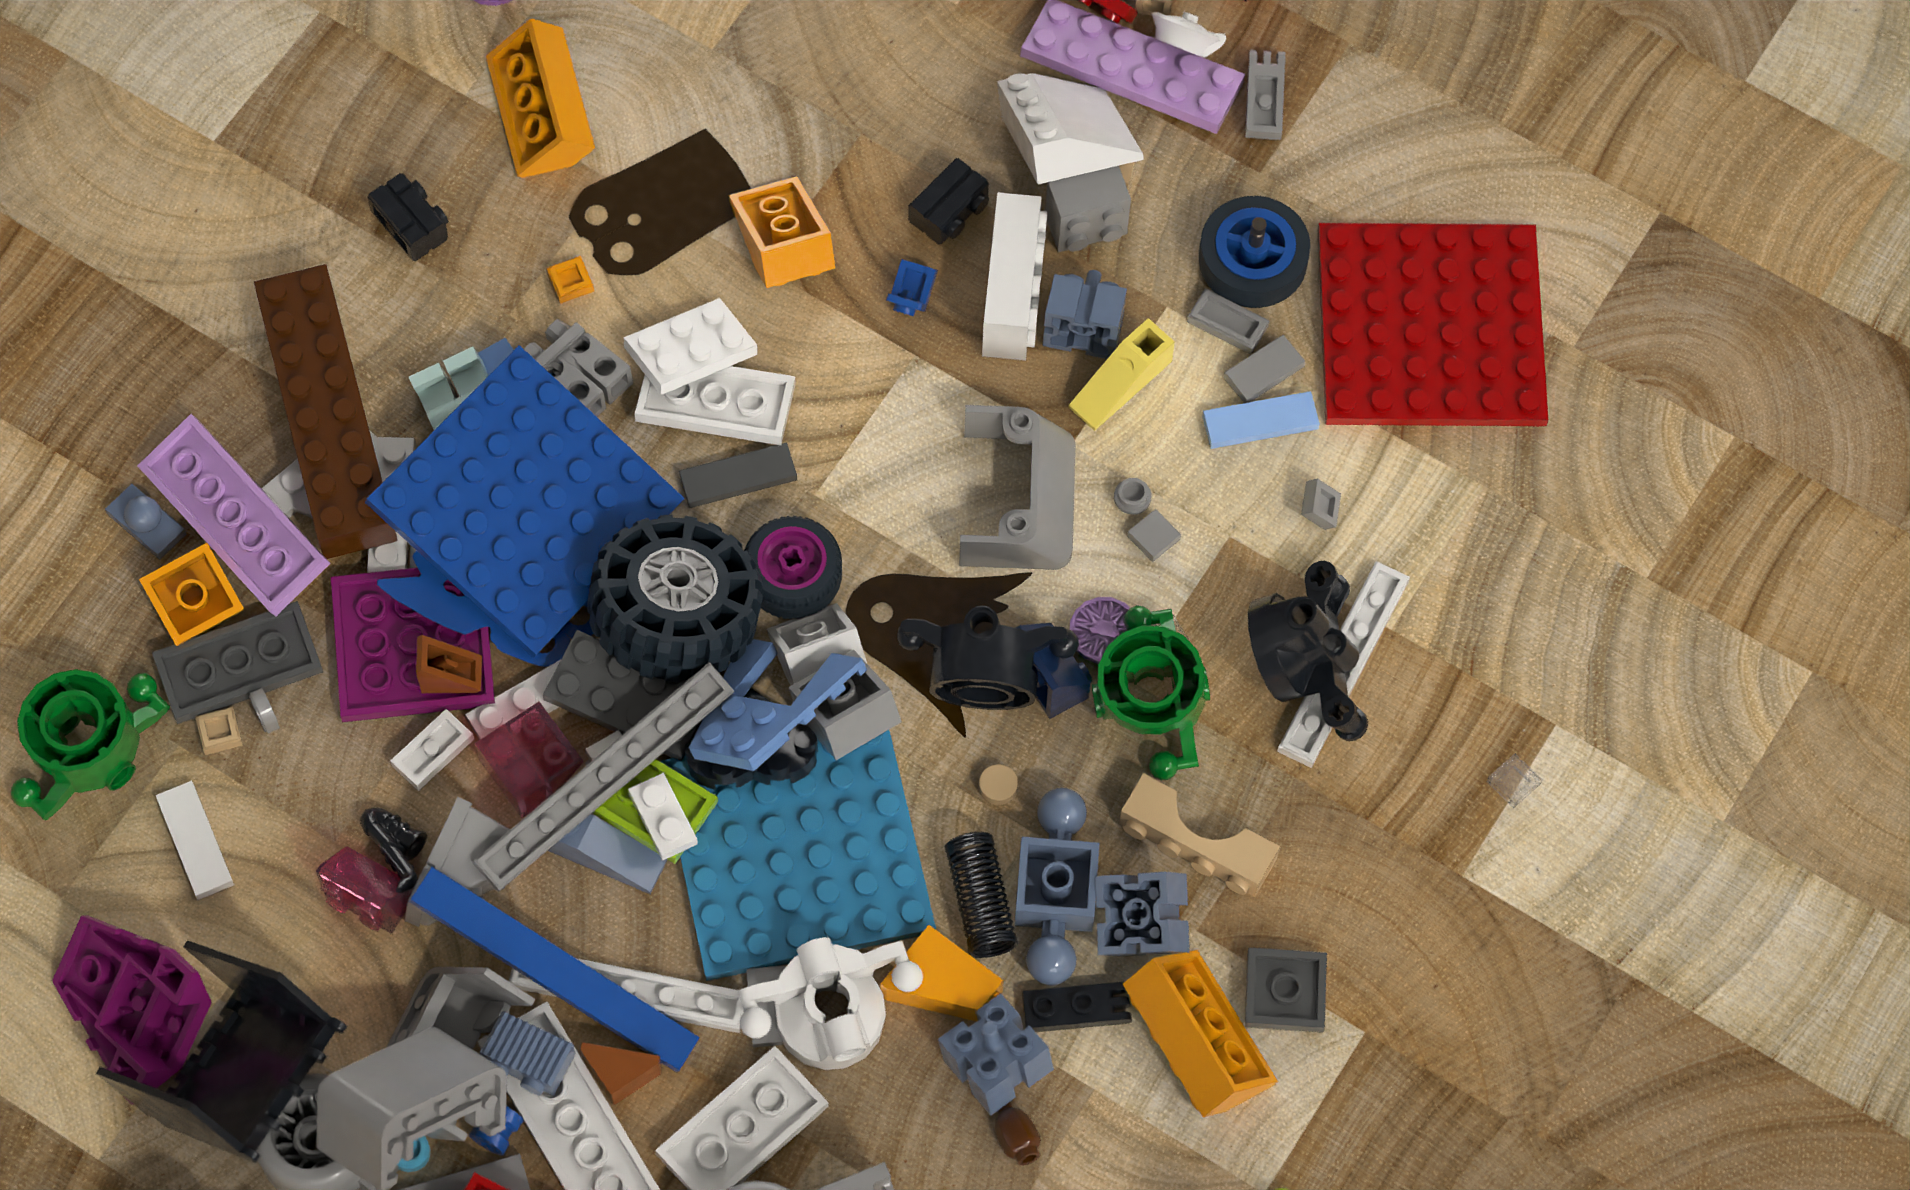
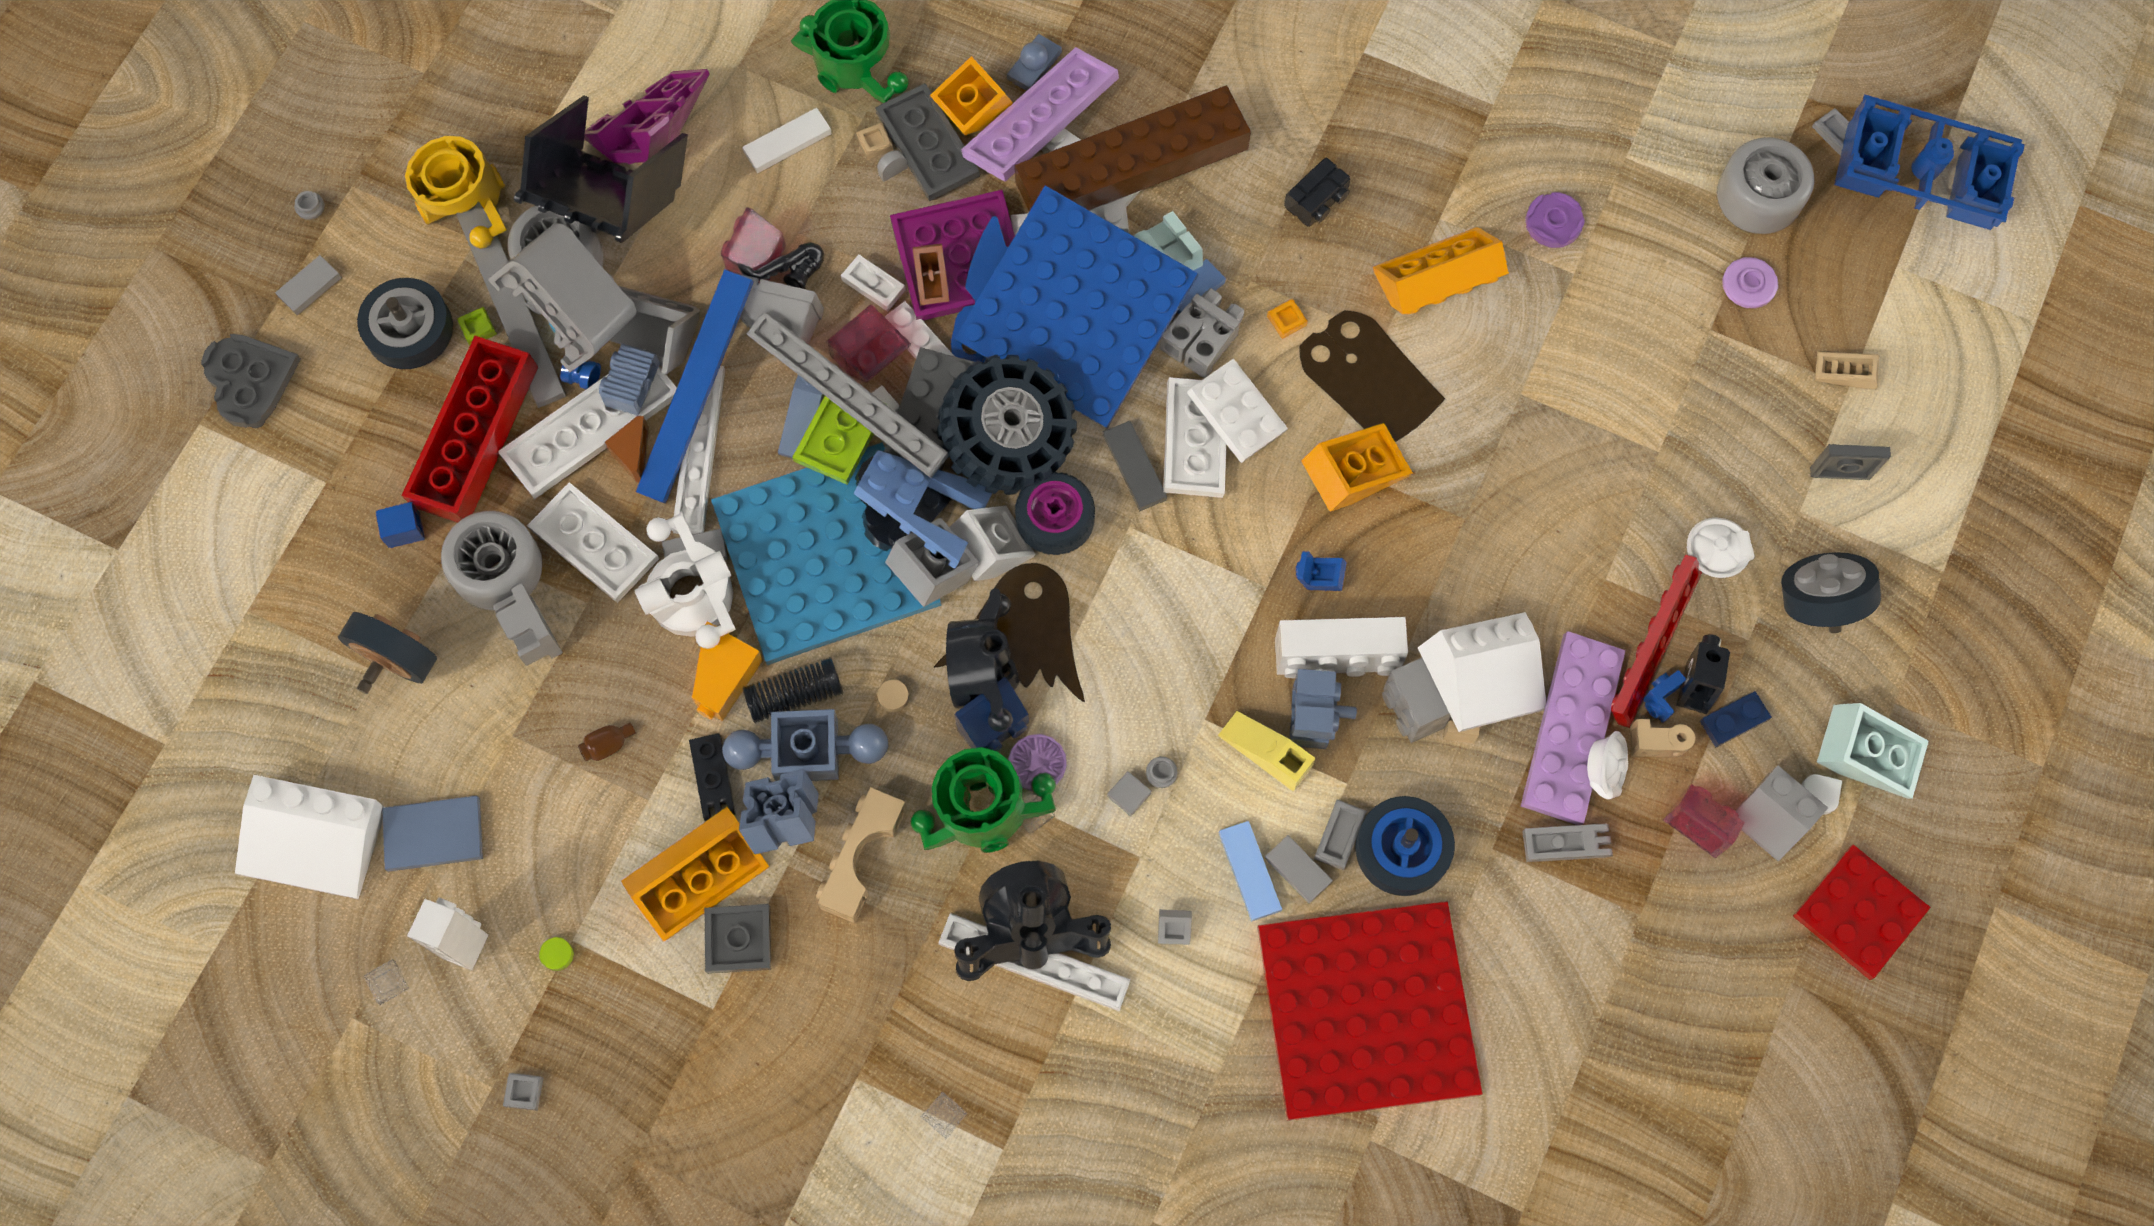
camera: 85 degrees right, 5 degrees up
(662, 816) = (822, 442): white plate -> none
(949, 201) = (1407, 592): black brick -> none
(995, 1054) = (659, 715): sand blue brick -> none
(1045, 532) = (1150, 701): light grey windscreen -> none

